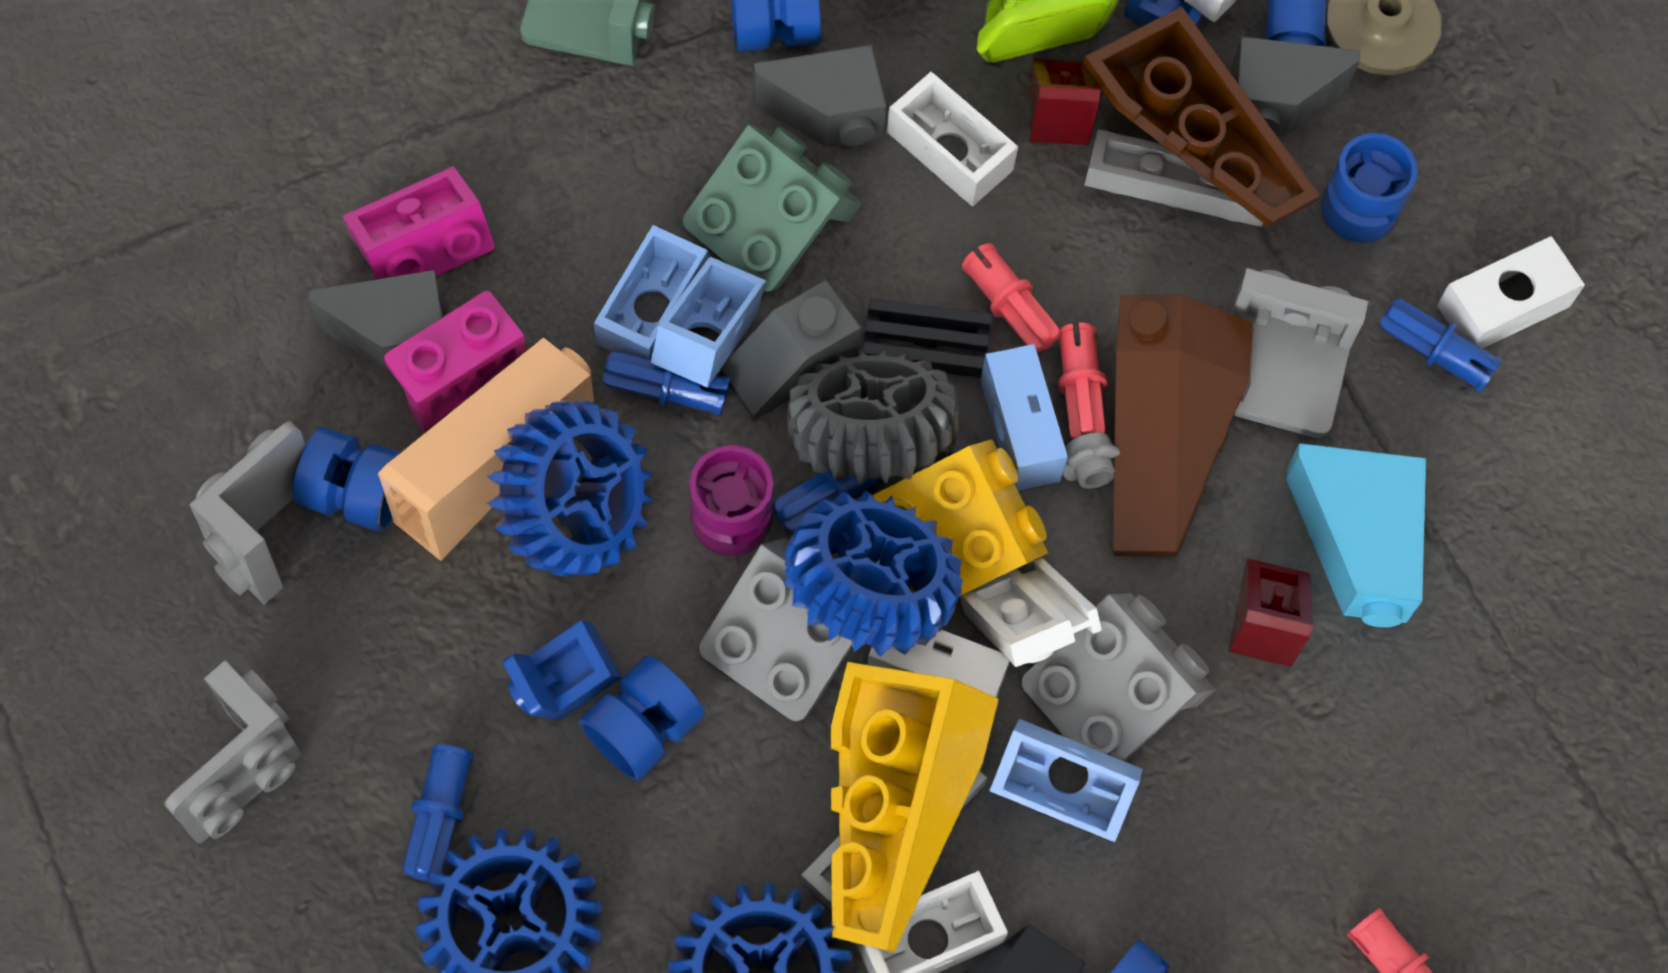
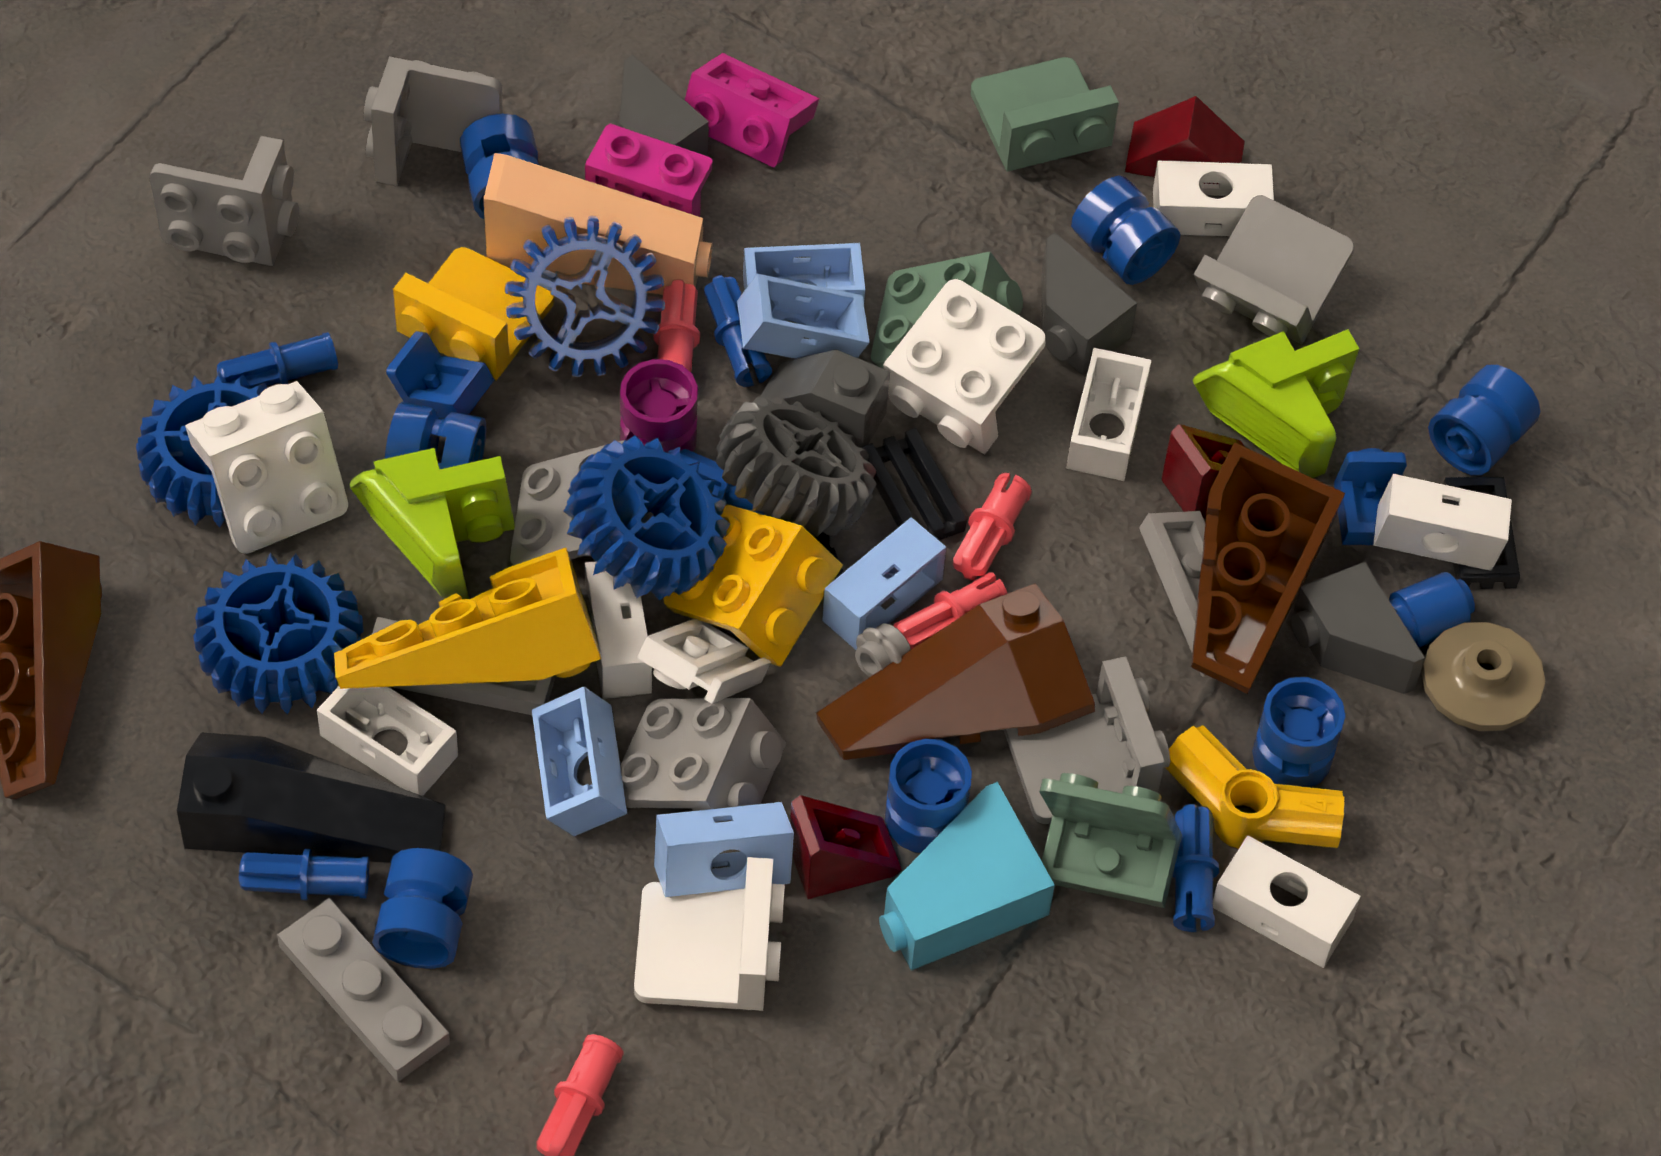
camera: 60 degrees right, 10 degrees down
(492, 601) = (466, 309): none -> yellow bracket
(571, 879) = (271, 465): none -> white bracket
(664, 452) = (677, 328): none -> coral axle
(728, 766) = (434, 508): none -> lime piece
(850, 214) = (962, 363): none -> white bracket
(1230, 727) = (692, 844): none -> light blue piece
(1271, 507) = (925, 791): none -> blue wheel
(1311, 768) = (710, 944): none -> white bracket
(1407, 394) = (1110, 840): none -> sand green bracket
(1426, 248) = (1282, 810): none -> yellow piece

